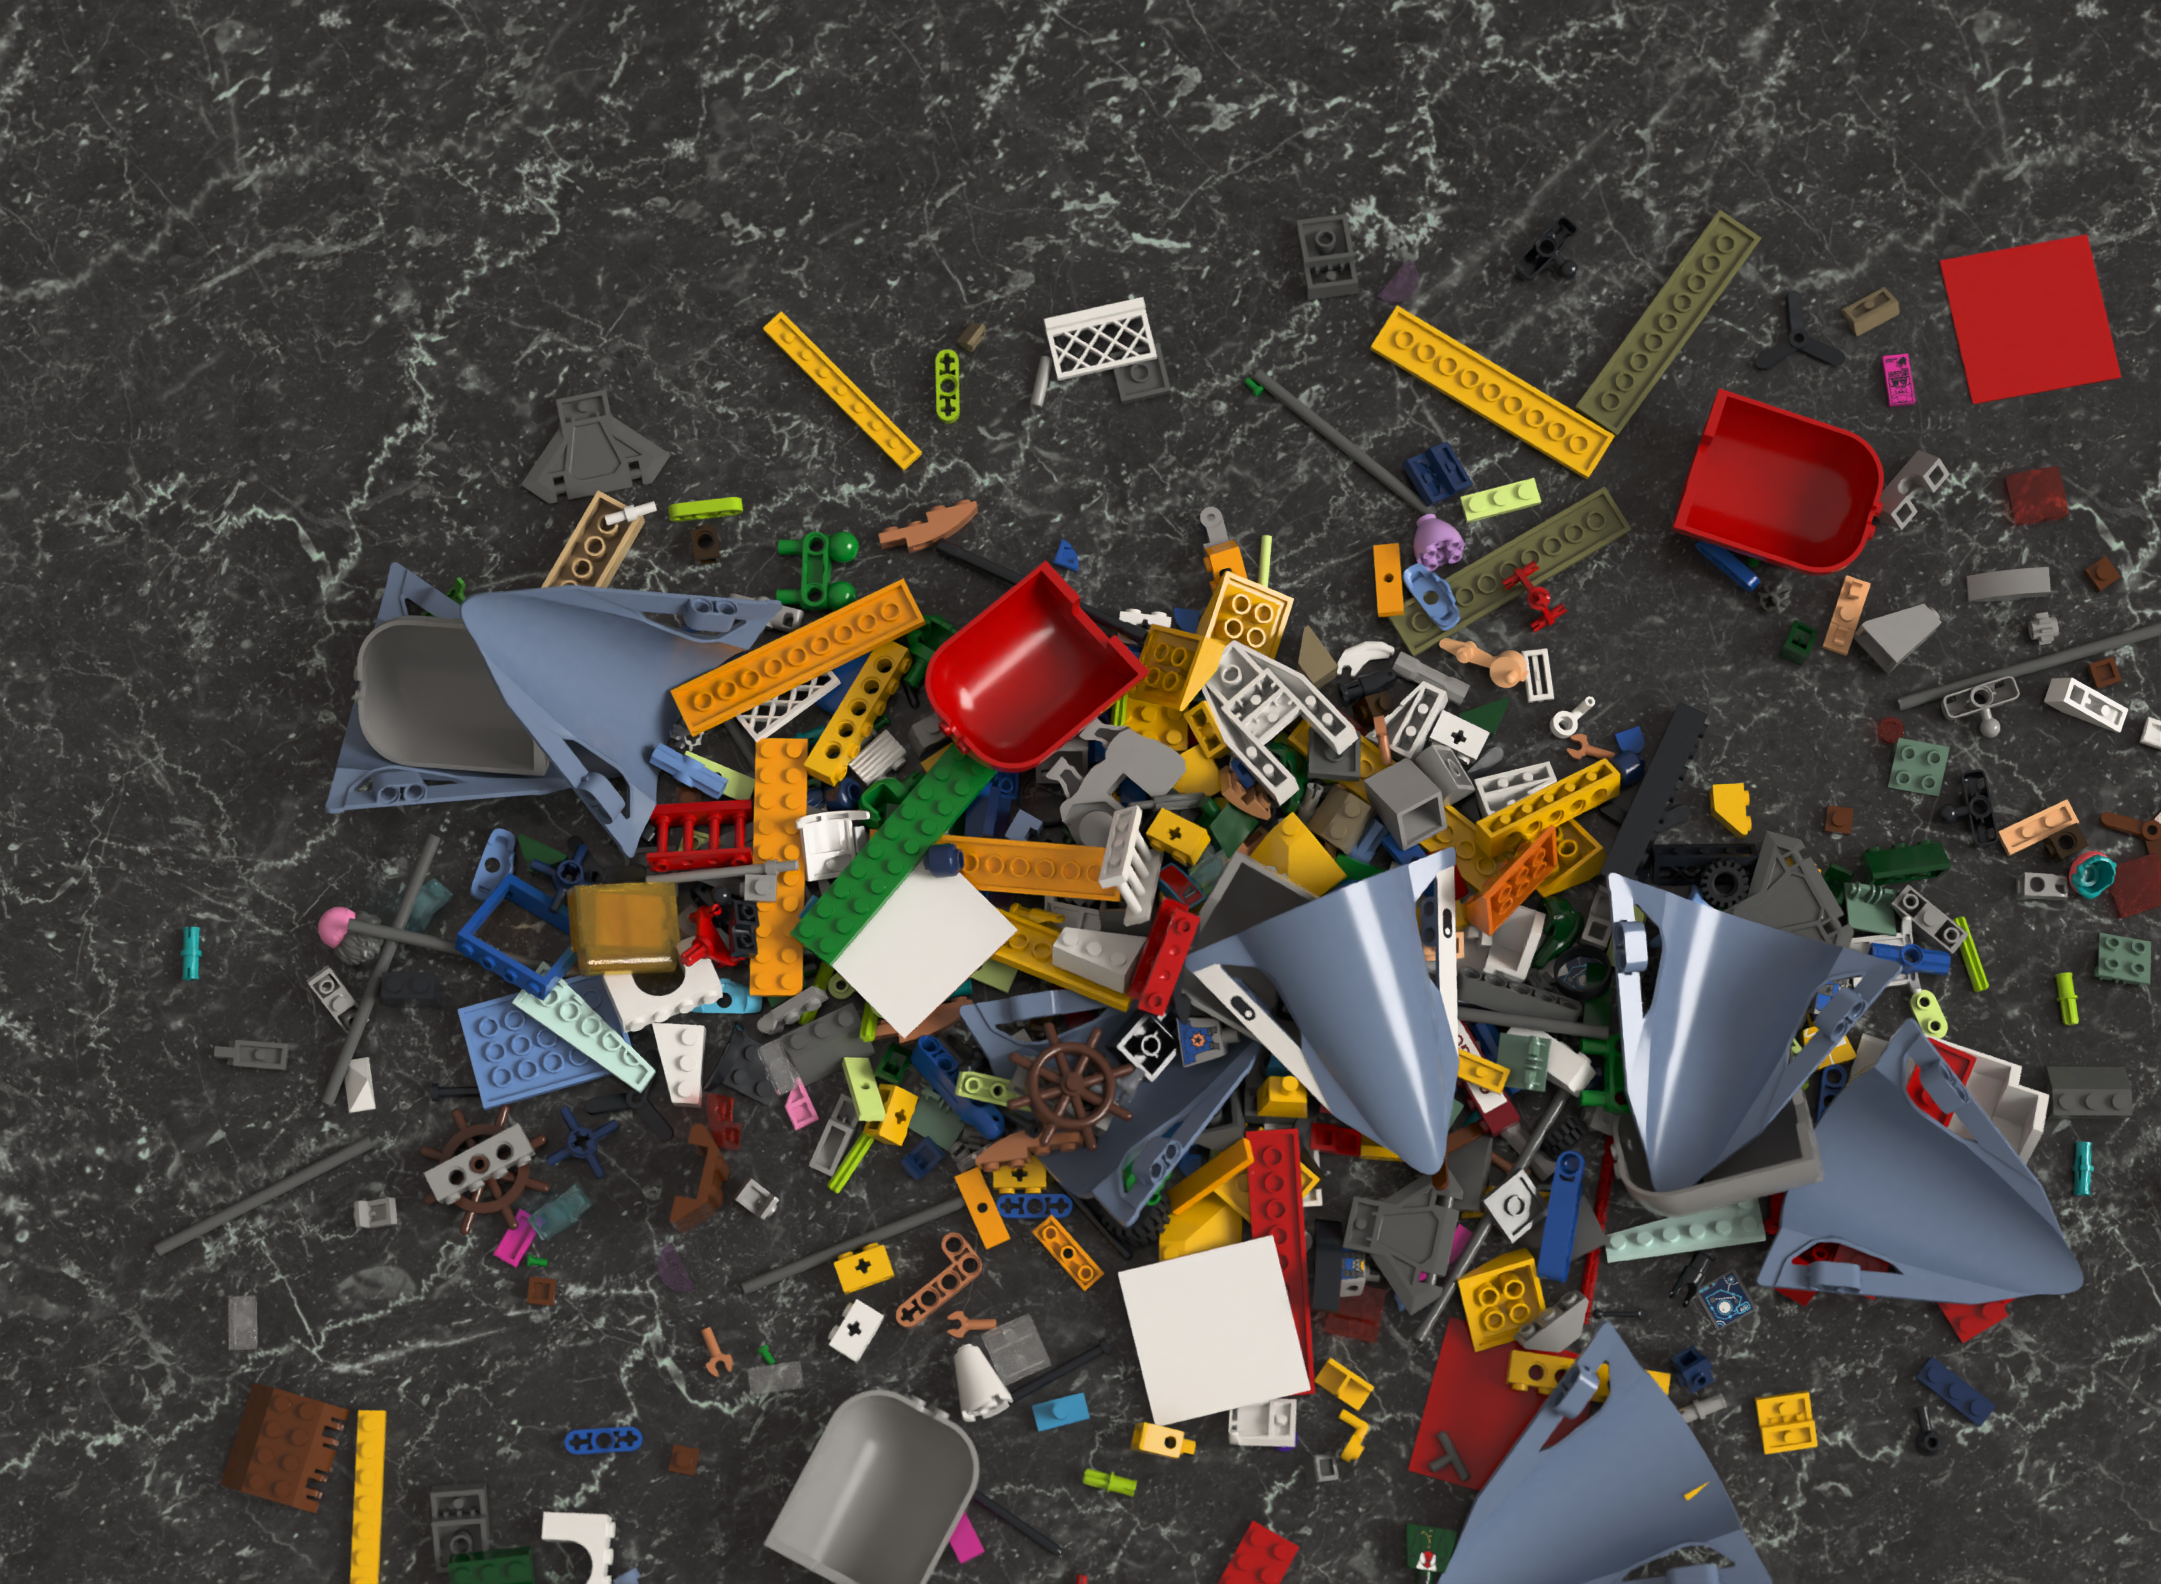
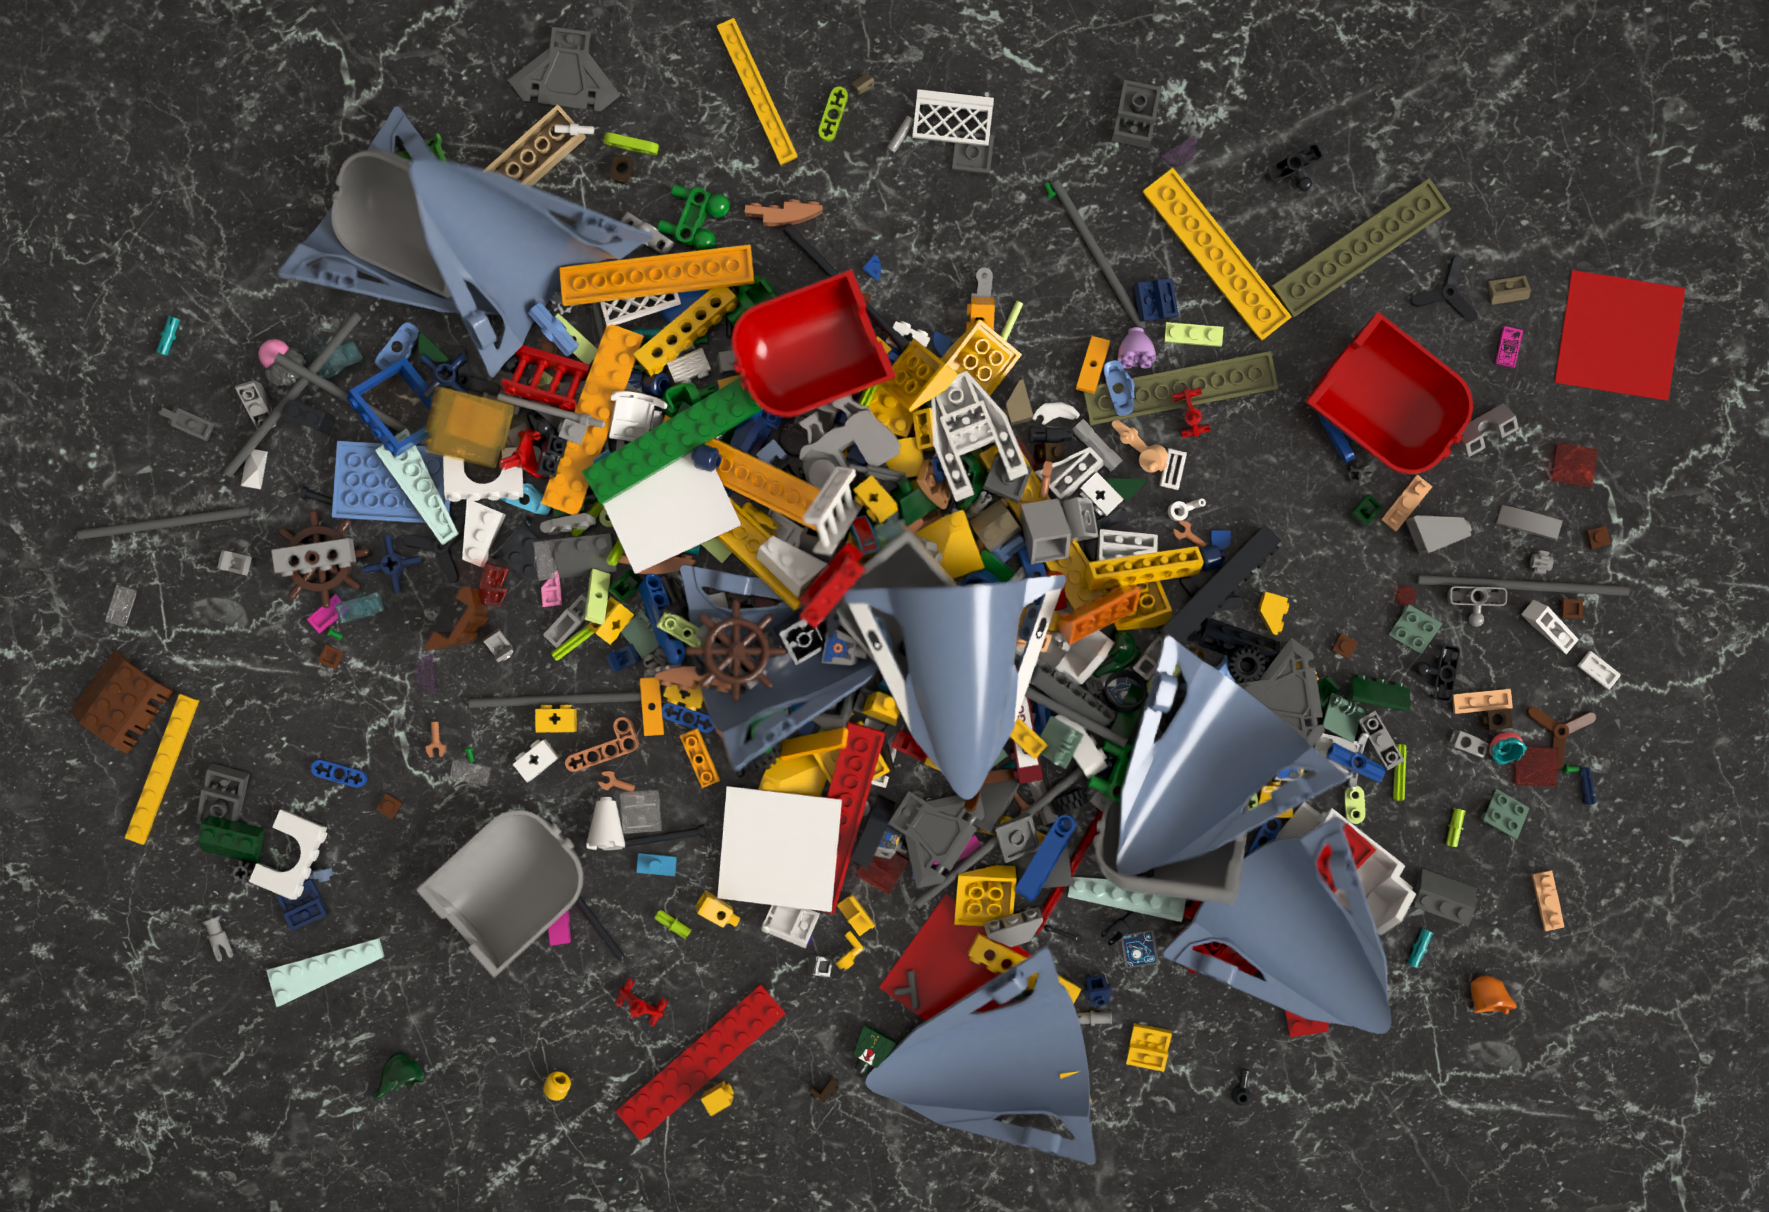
camera: 20 degrees right, 10 degrees up
(1955, 1391) = (1272, 1068): dark blue plate -> none

